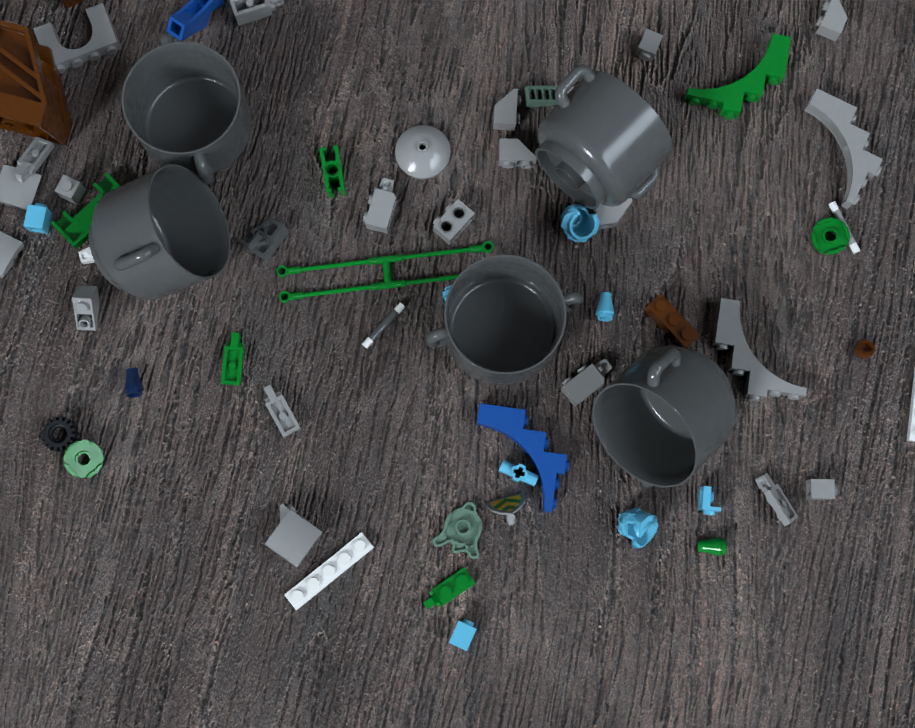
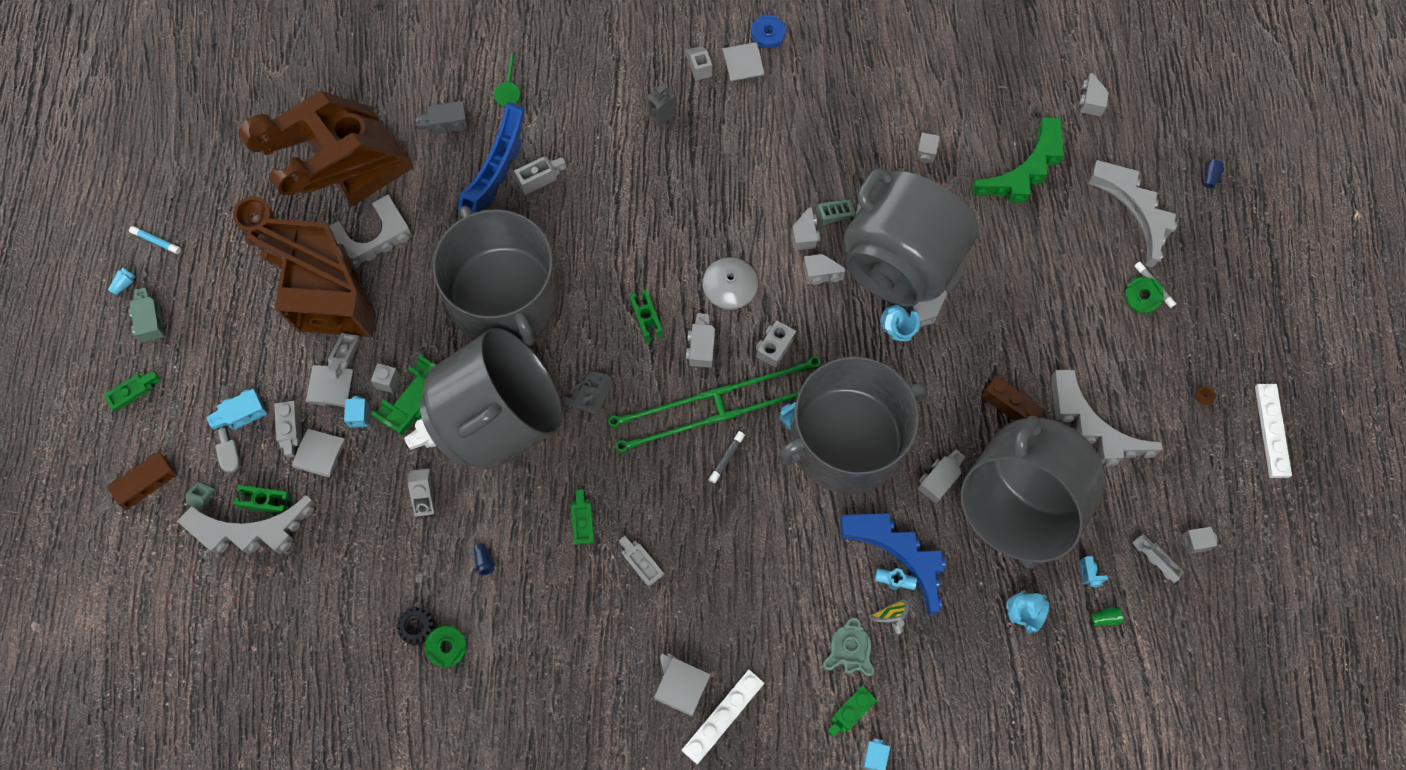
camera: 10 degrees left, 10 degrees down
(605, 307) = (944, 402): medium azure cone -> none

